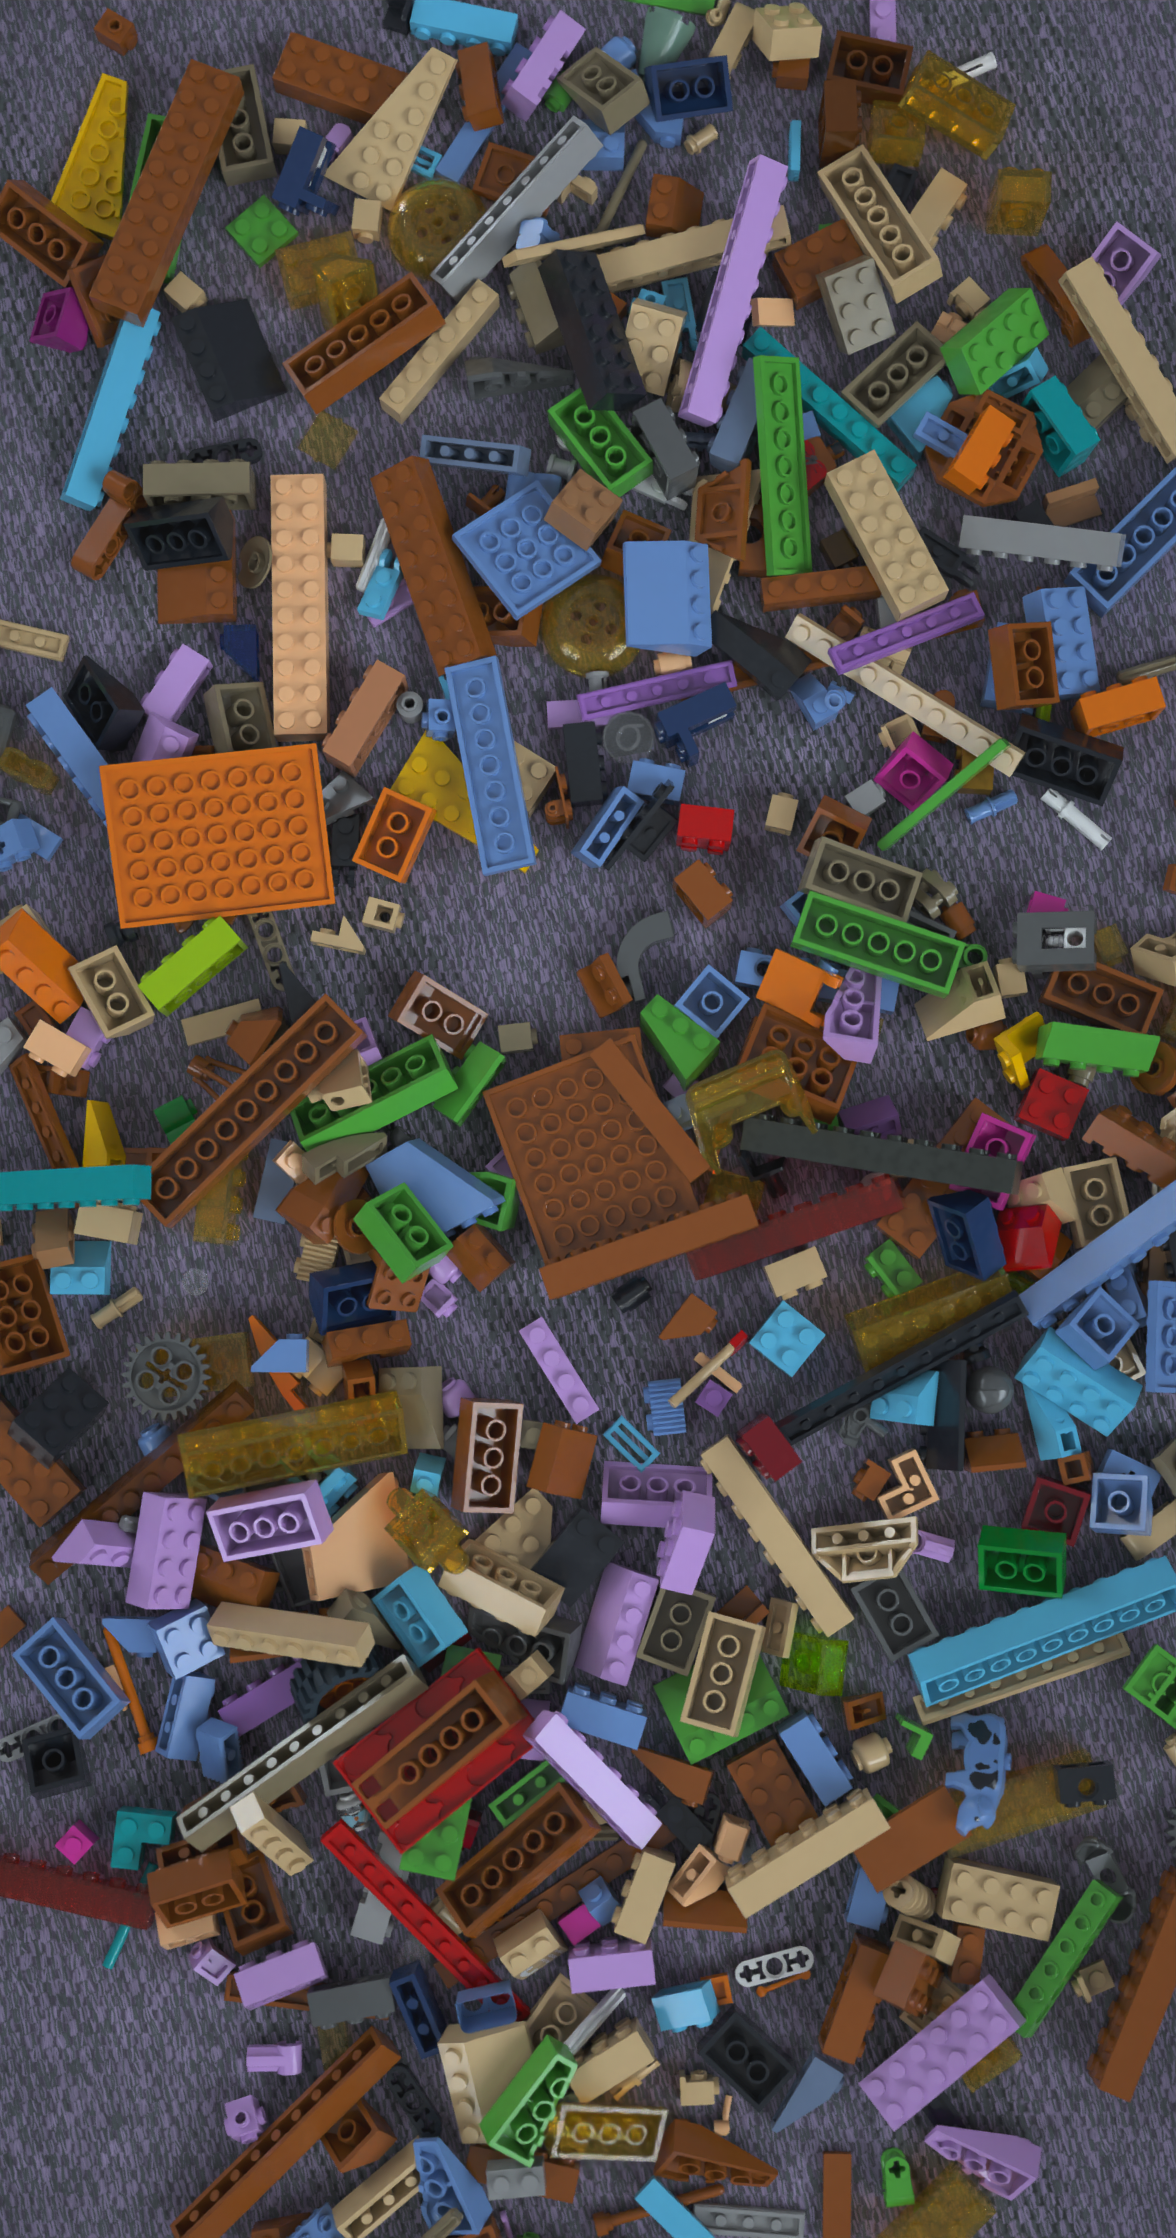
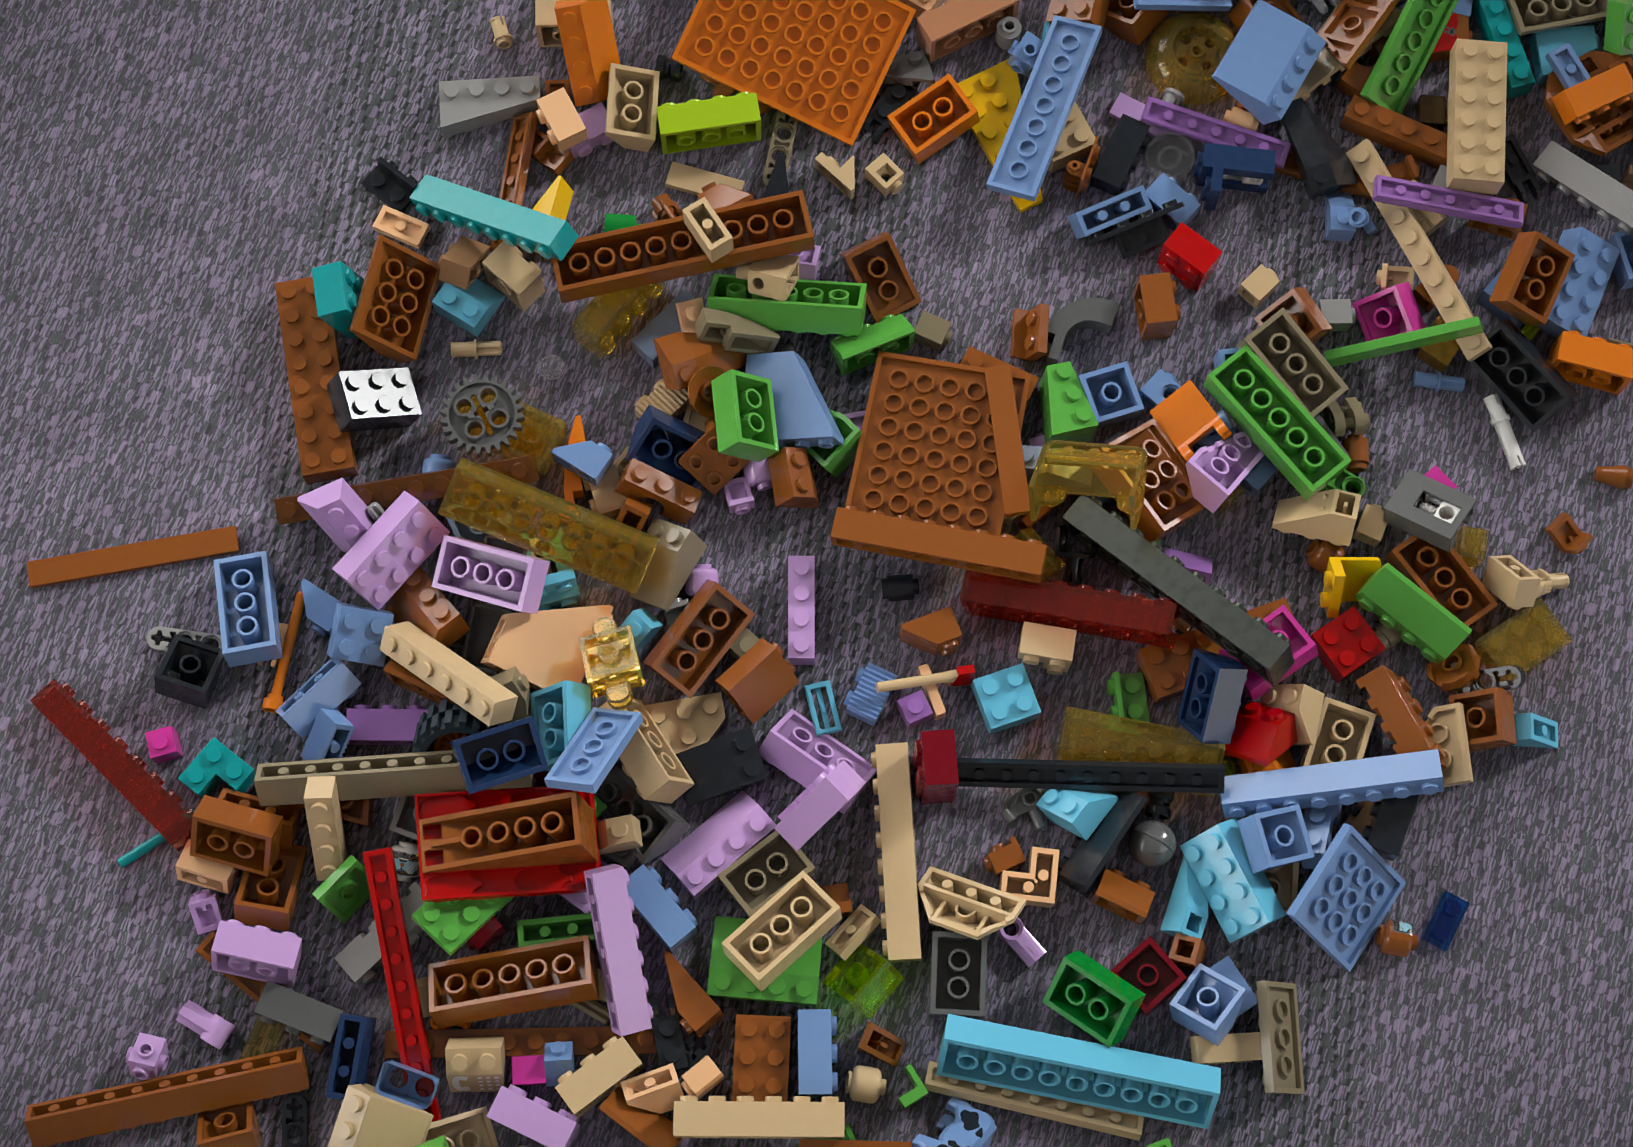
camera: 25 degrees right, 10 degrees down
(266, 1089) = (708, 229): none -> tan brick
(320, 1872) = (344, 889): none -> bright green plate
(386, 1686) = (499, 755): none -> dark blue slope
(465, 1628) = (593, 750): none -> medium blue plate

